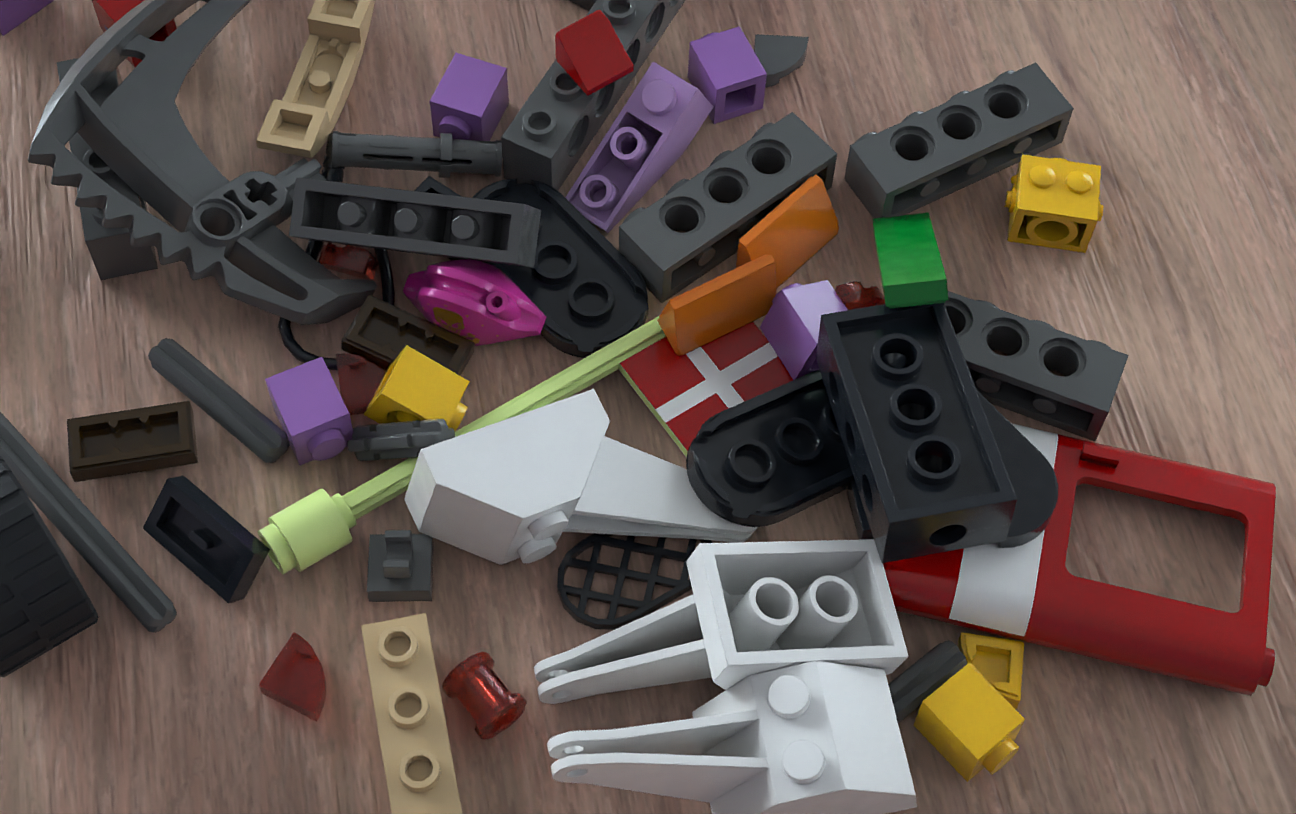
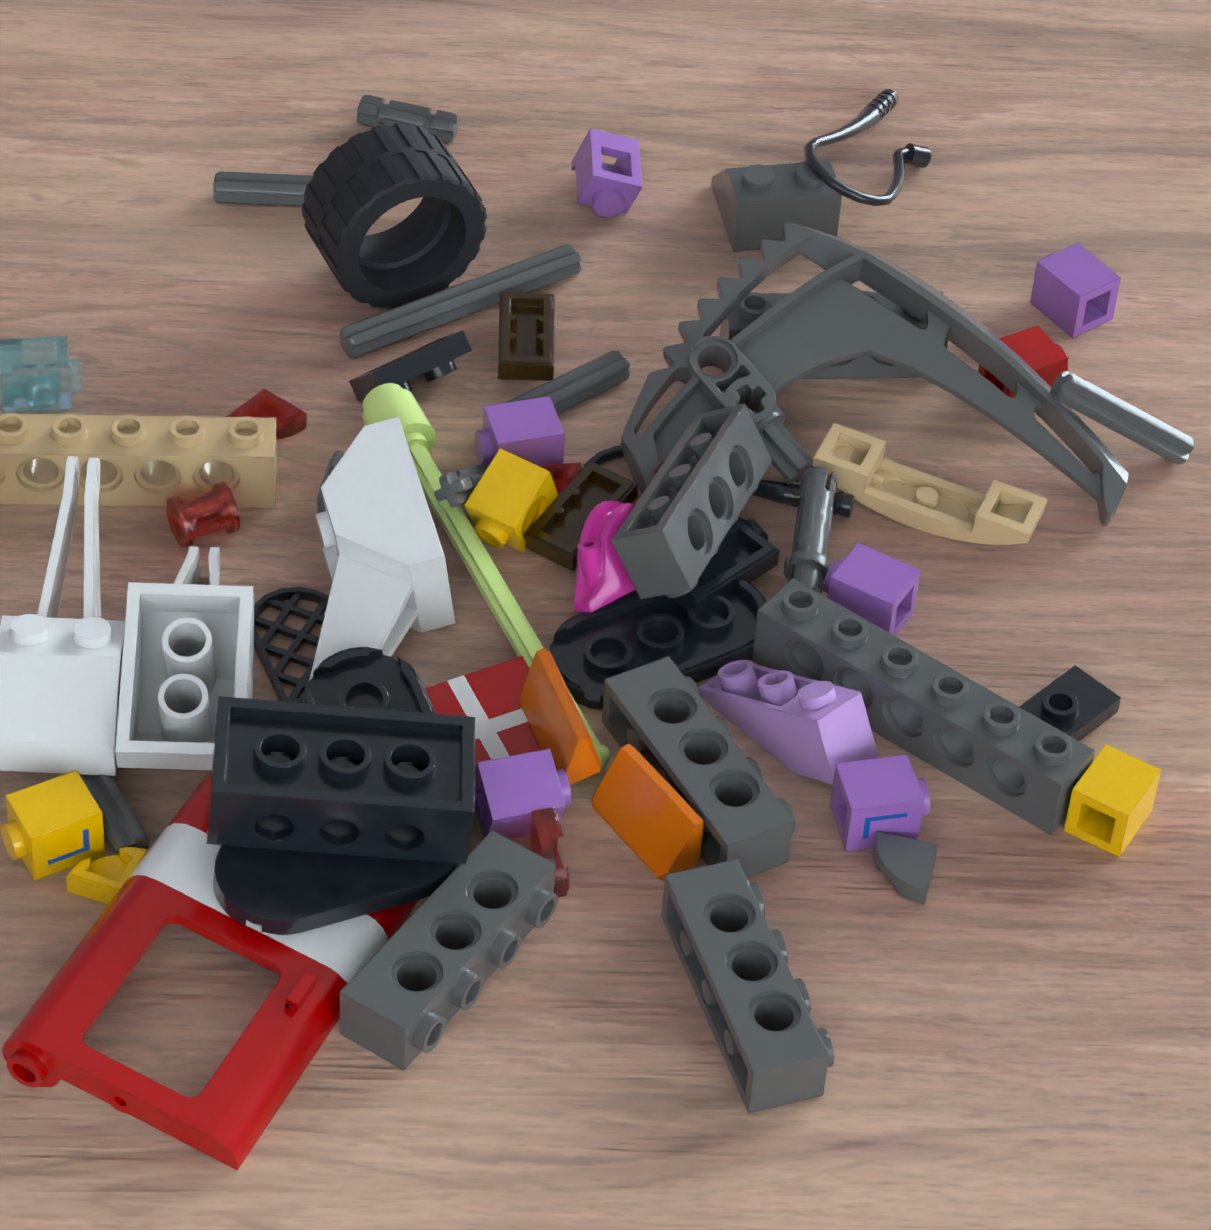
camera: 100 degrees right, 15 degrees down
(592, 53) = (871, 637): red slope -> none
(909, 261) = (557, 845): green tile -> none
(1054, 203) = (641, 1050): yellow head -> none

